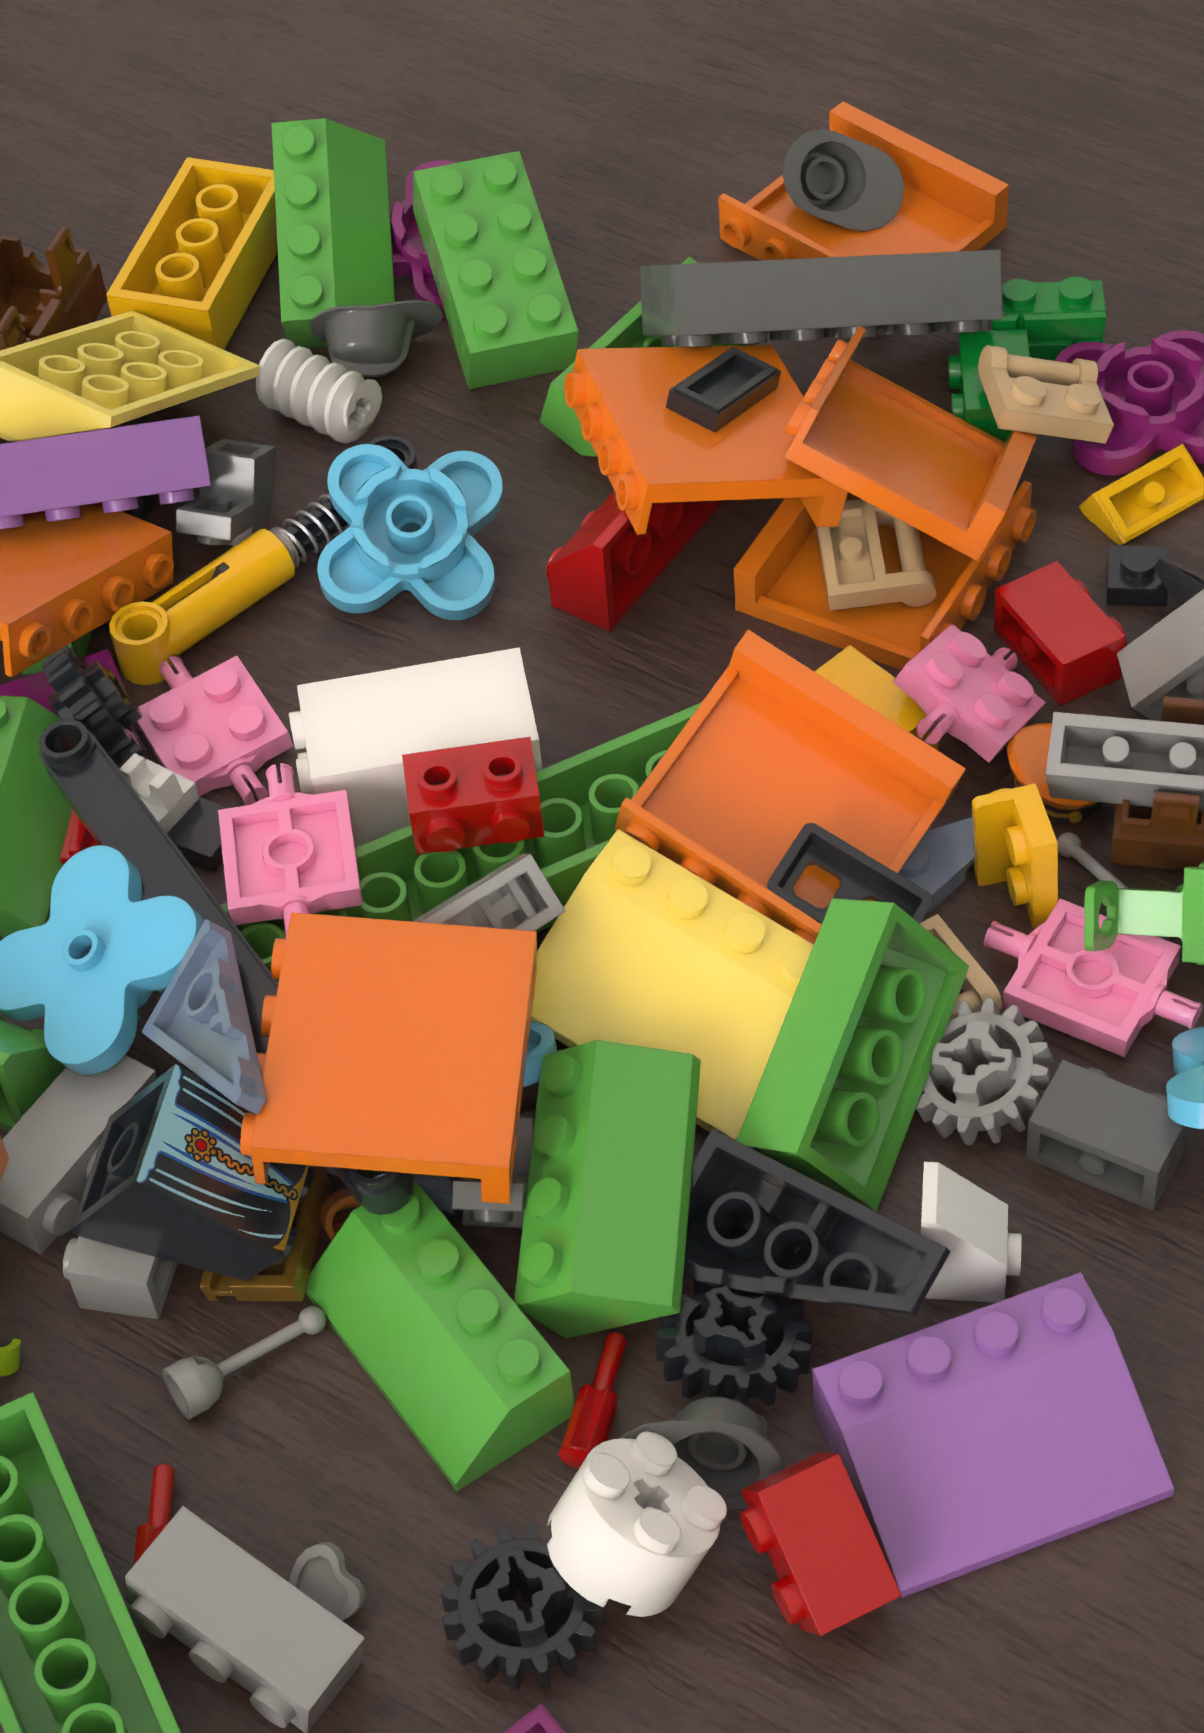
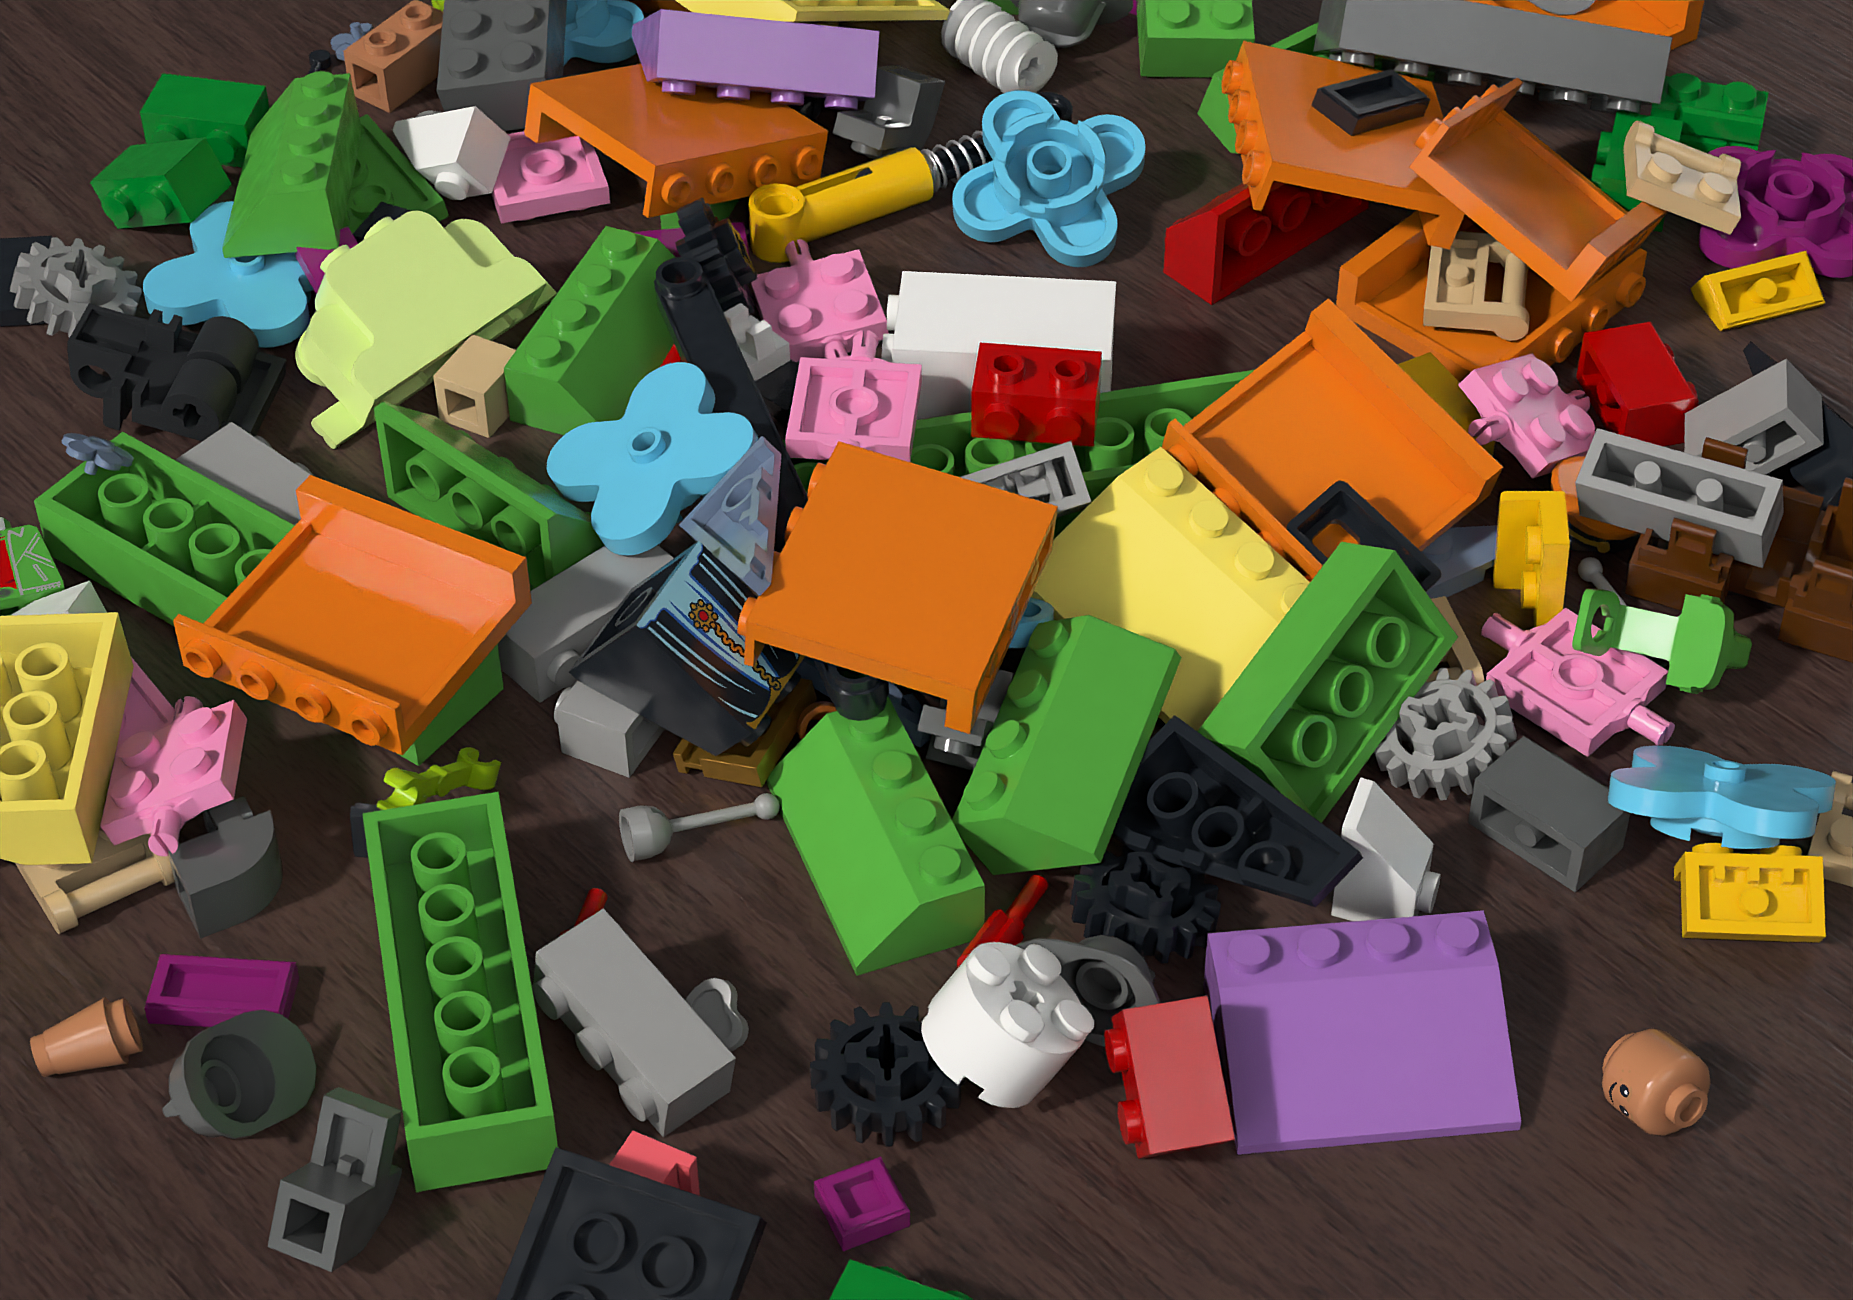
camera: 10 degrees right, 5 degrees down
(1132, 576) = (1722, 356): black plate -> none

